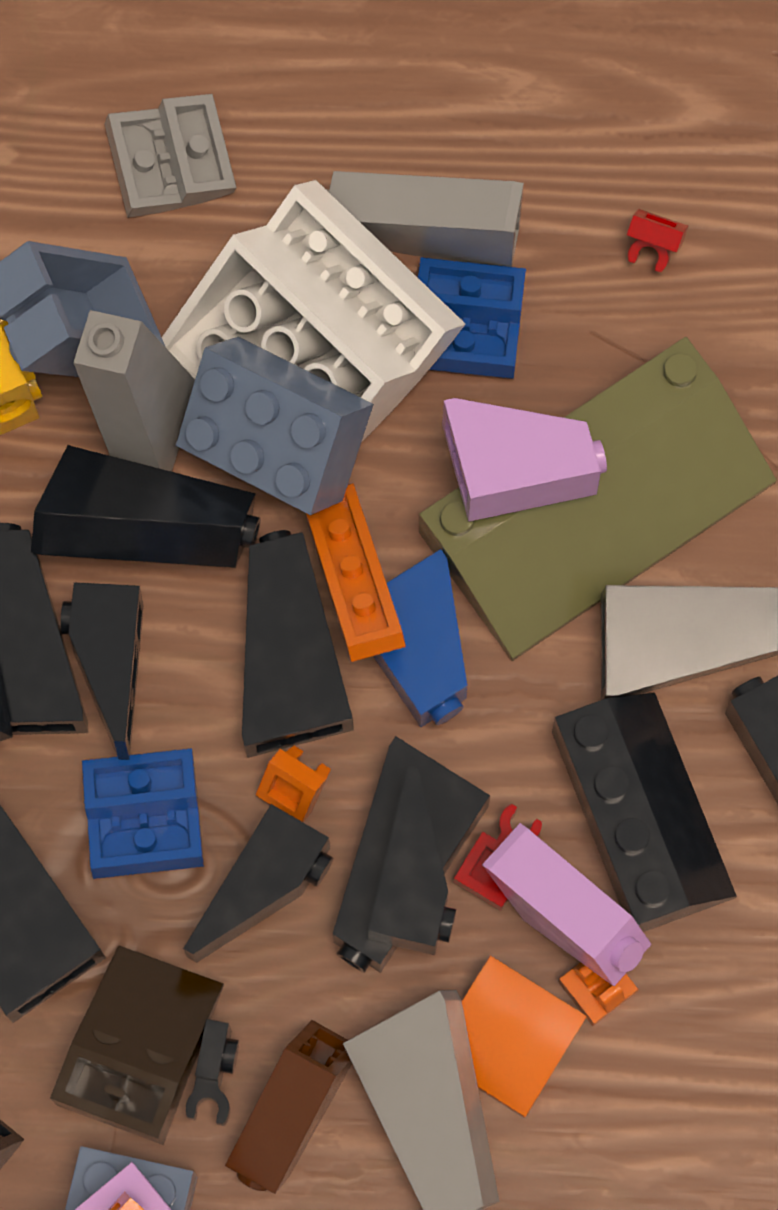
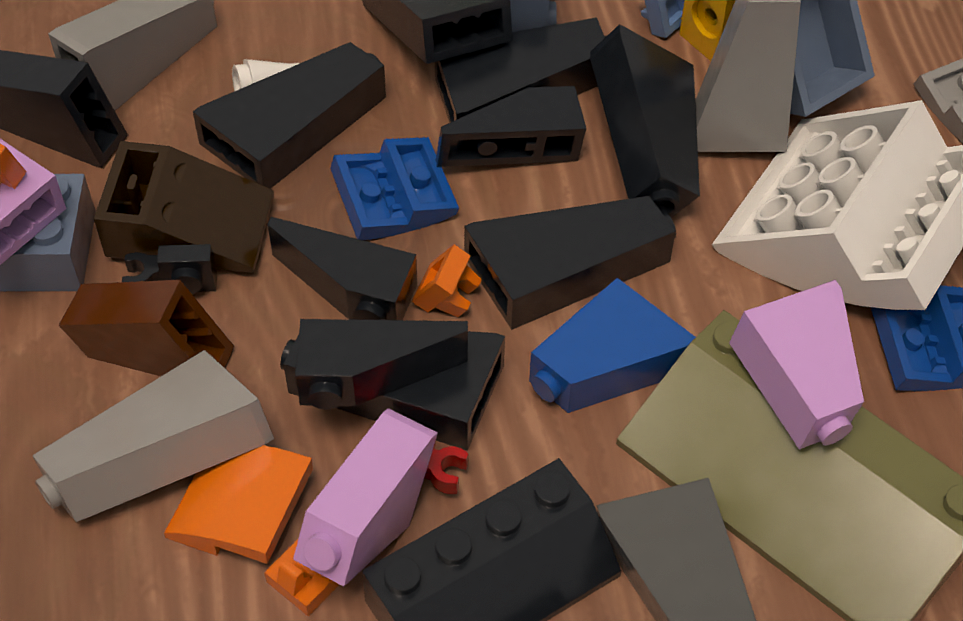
camera: 75 degrees right, 20 degrees down
(274, 424) = (763, 183): sand blue brick -> none
(355, 579) = (646, 268): orange plate -> none

